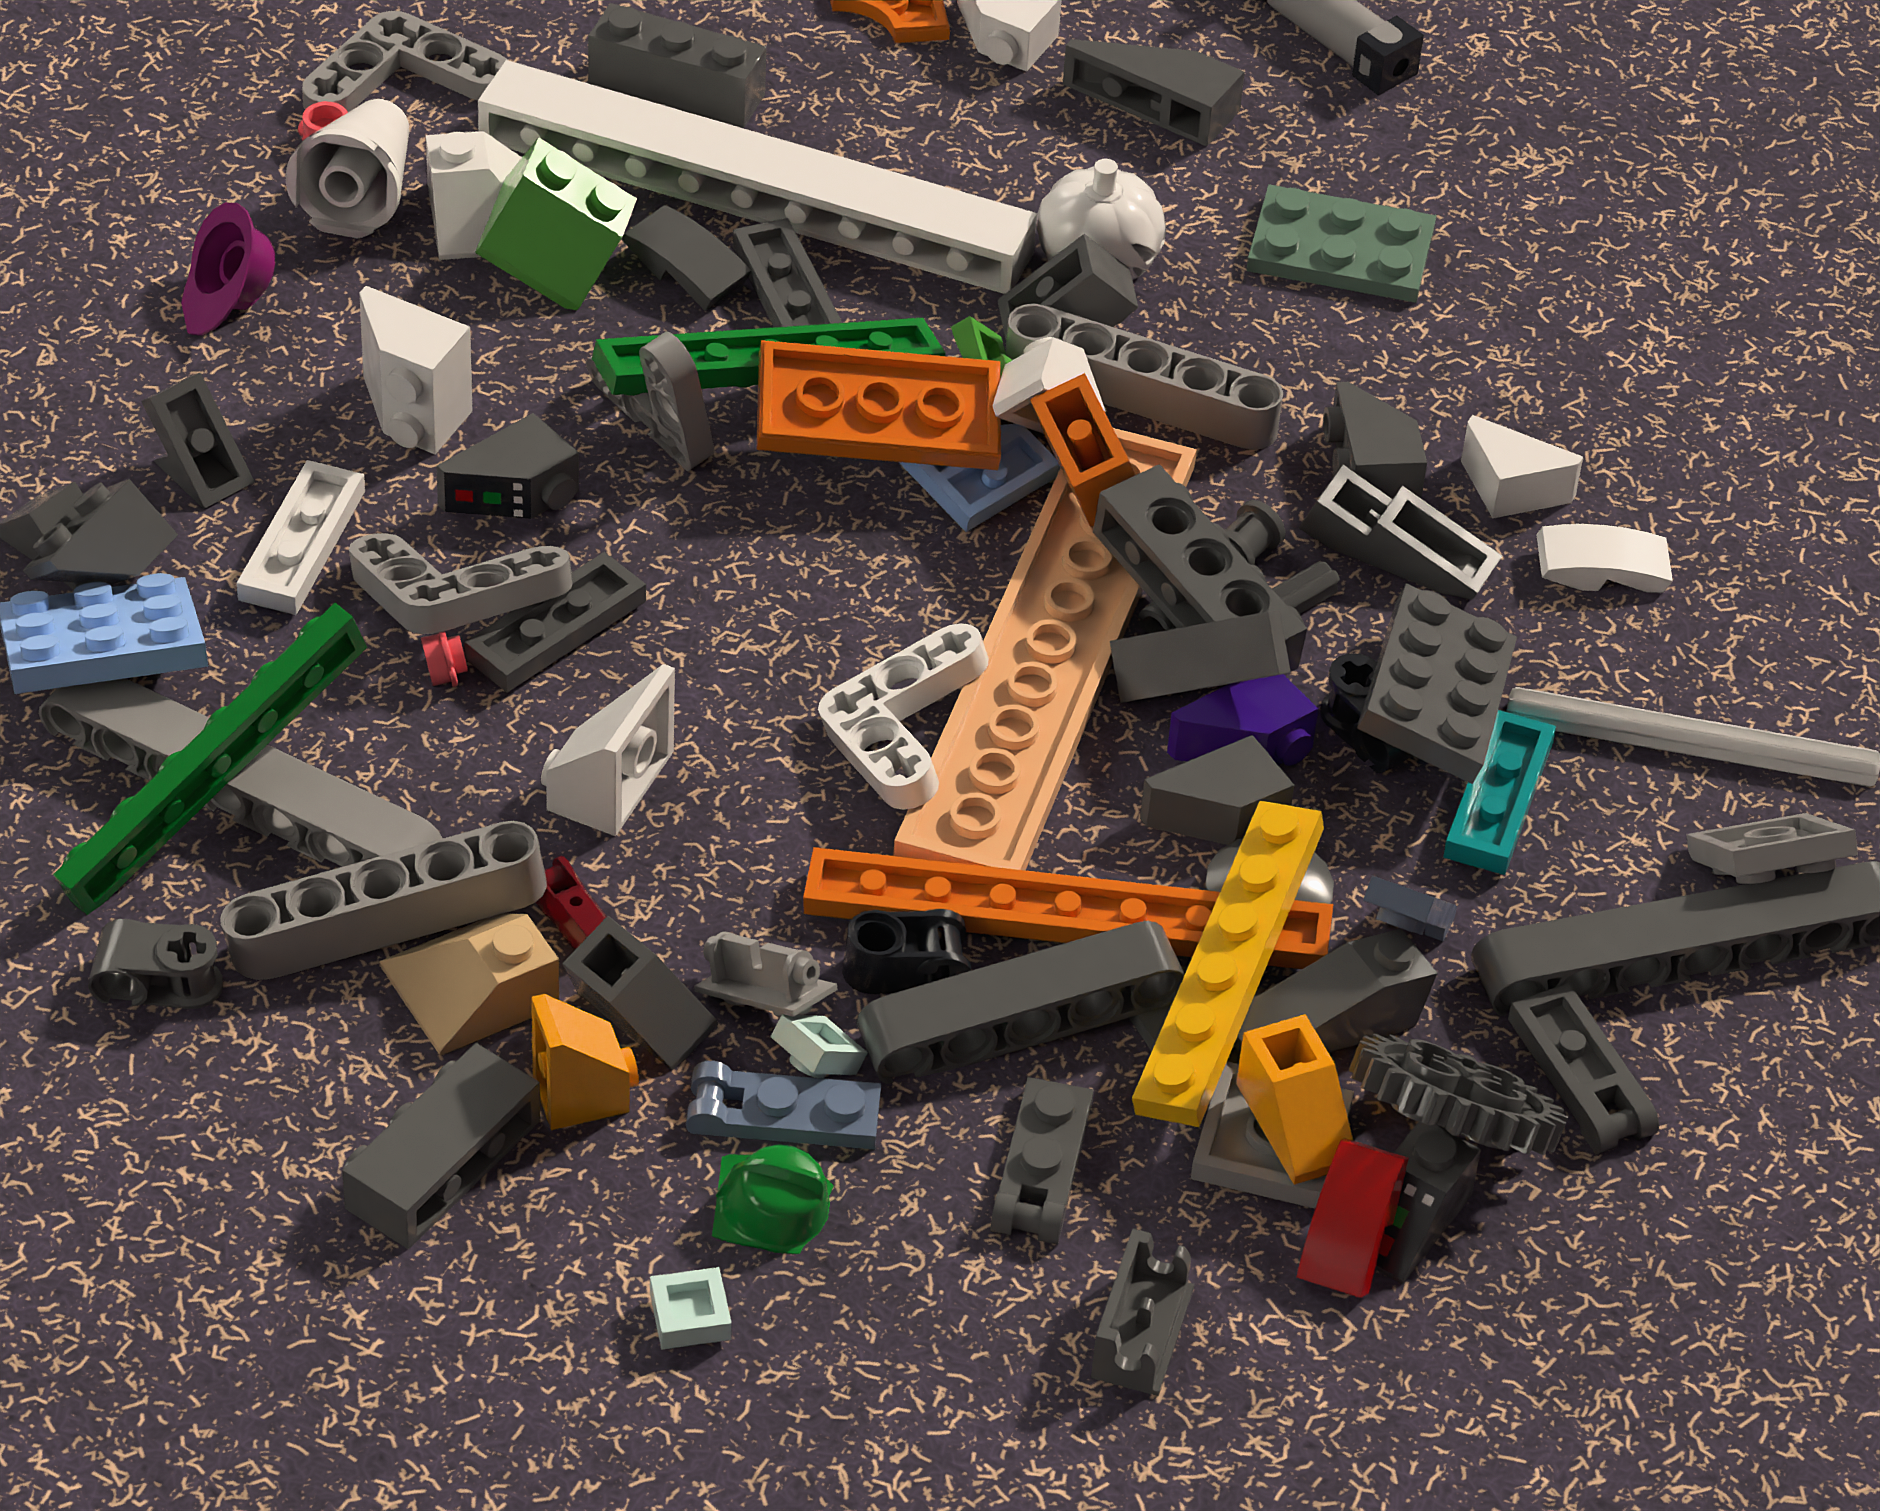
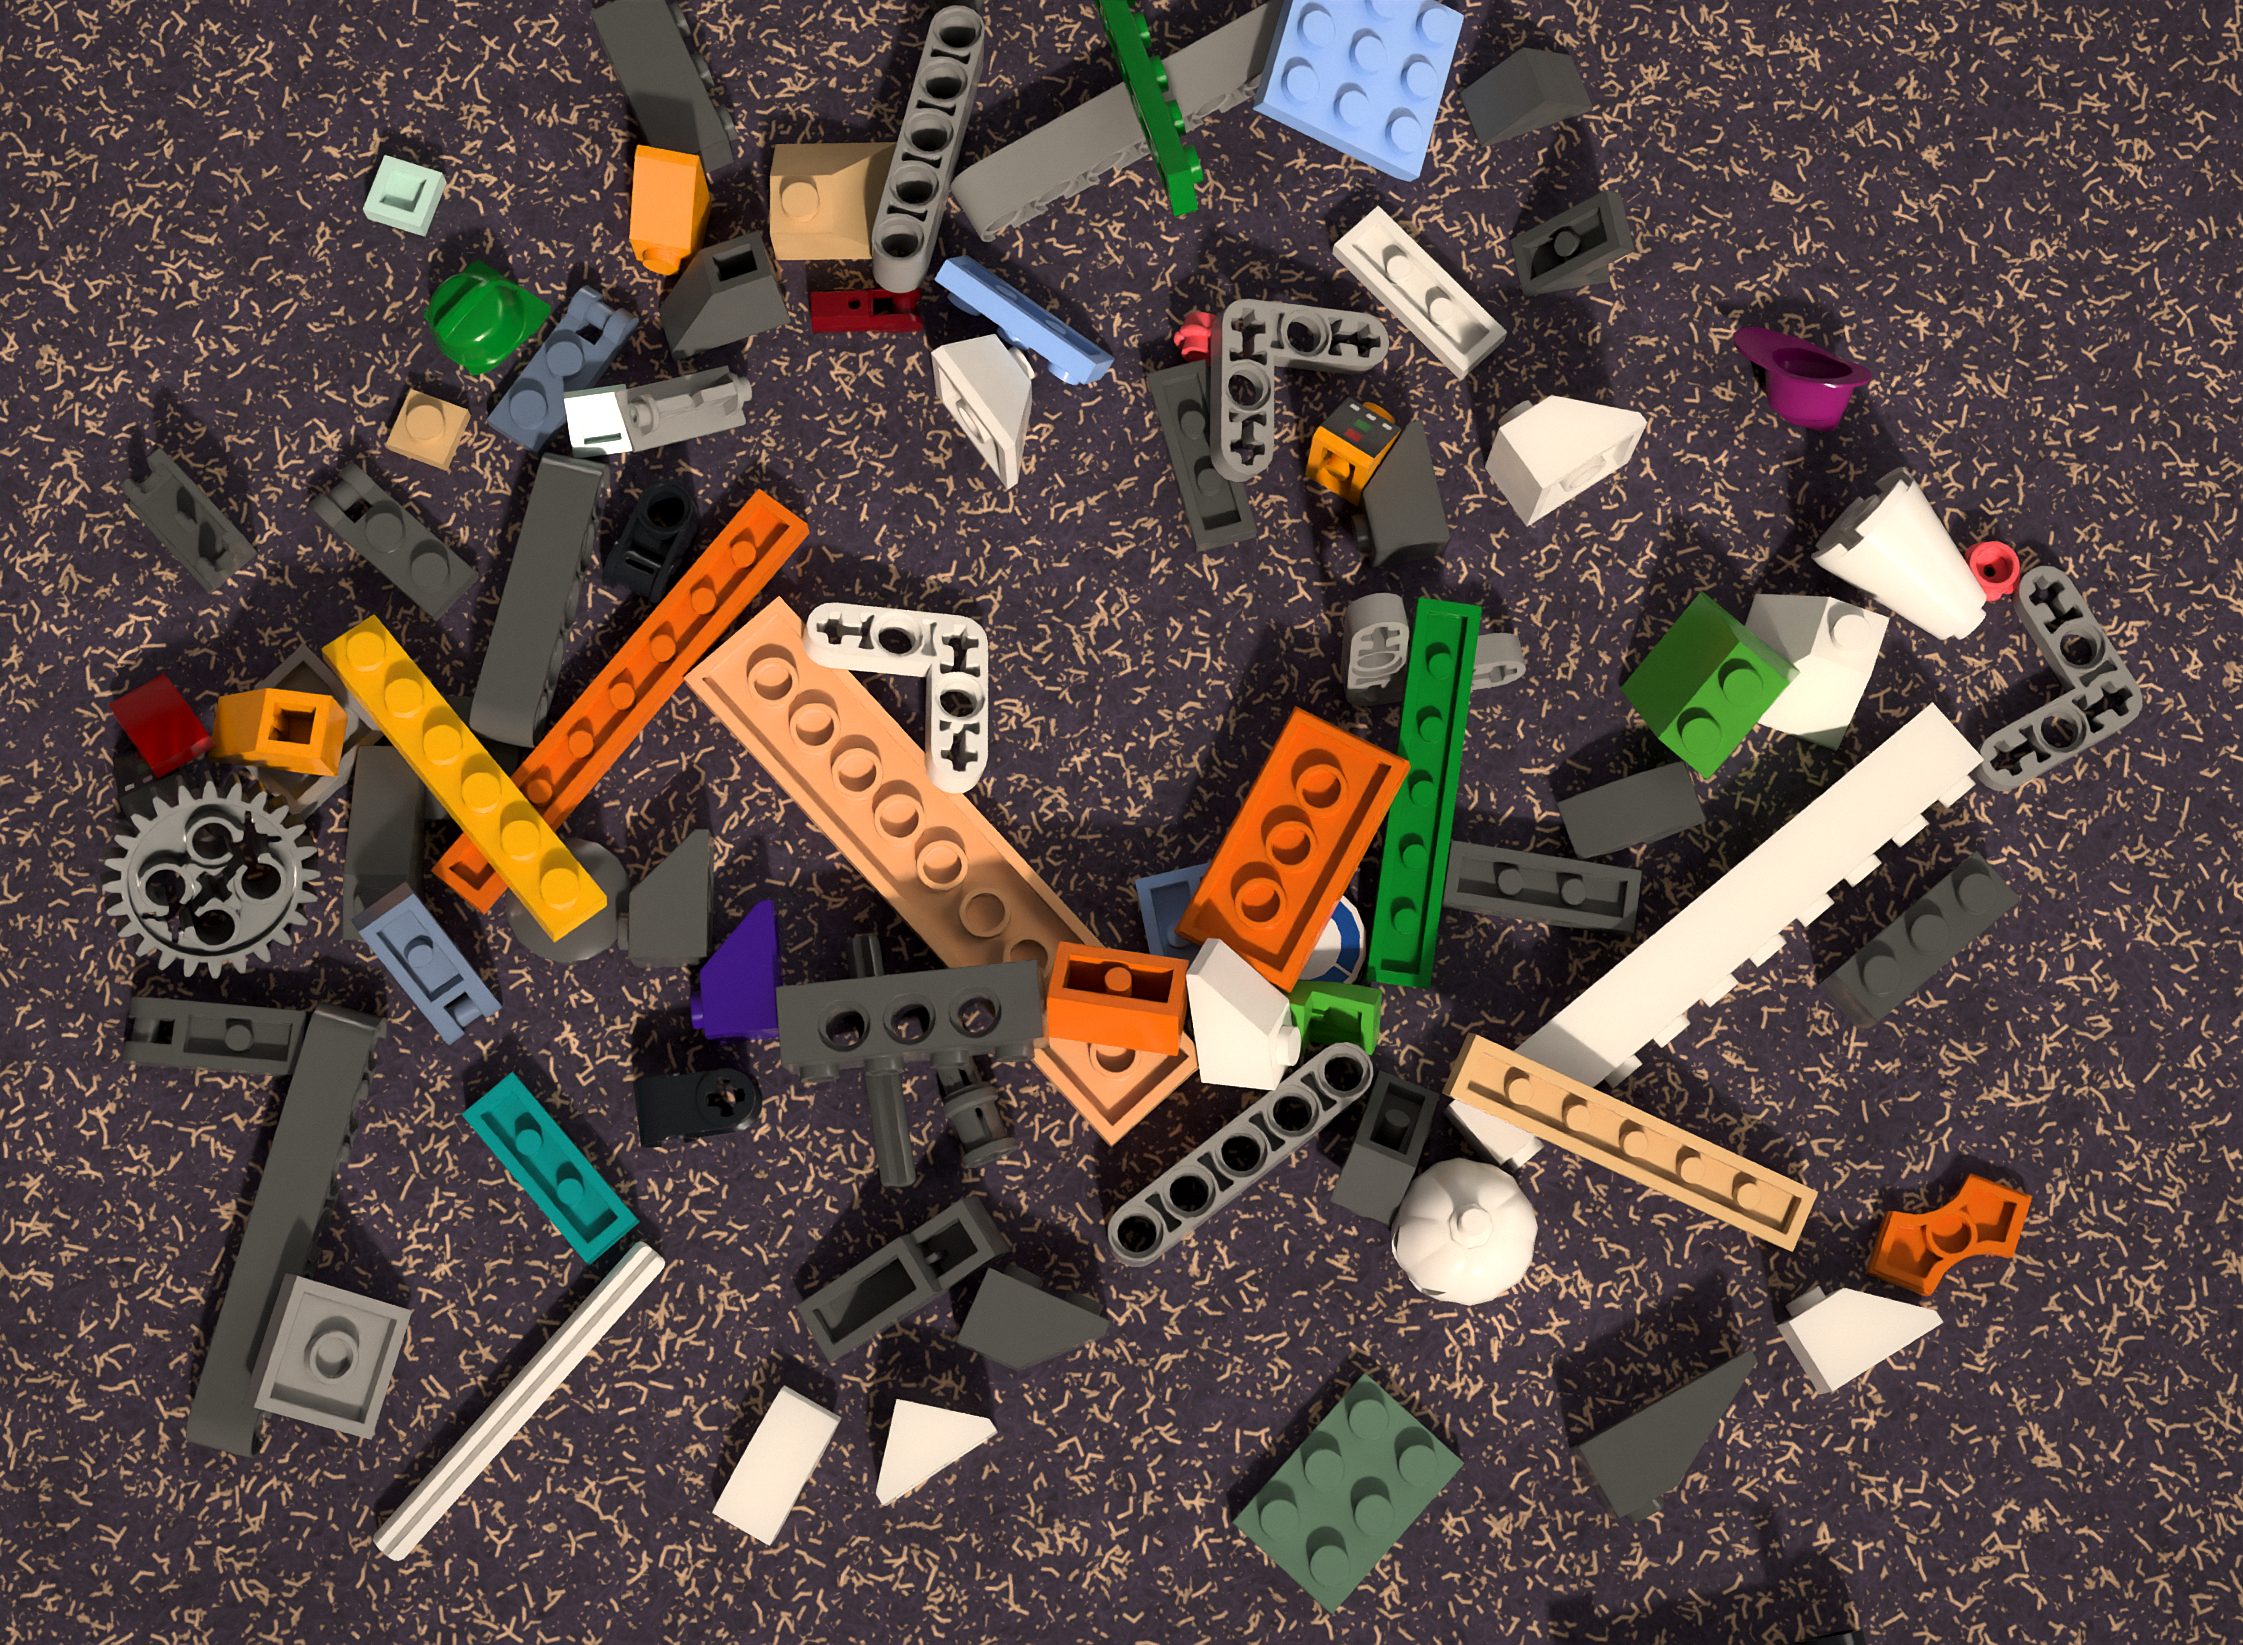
camera: 120 degrees right, 30 degrees up
(106, 541) = (1471, 107): dark grey slope -> none
(487, 505) = (1351, 448): none -> light orange slope
(510, 772) = (1023, 321): none -> light blue plate
(914, 1185) = (428, 429): none -> tan plate
(965, 150) = (1629, 1141): none -> tan plate
(1200, 656) = (810, 955): dark grey tile -> none
(1438, 683) = (678, 1170): dark grey plate -> none

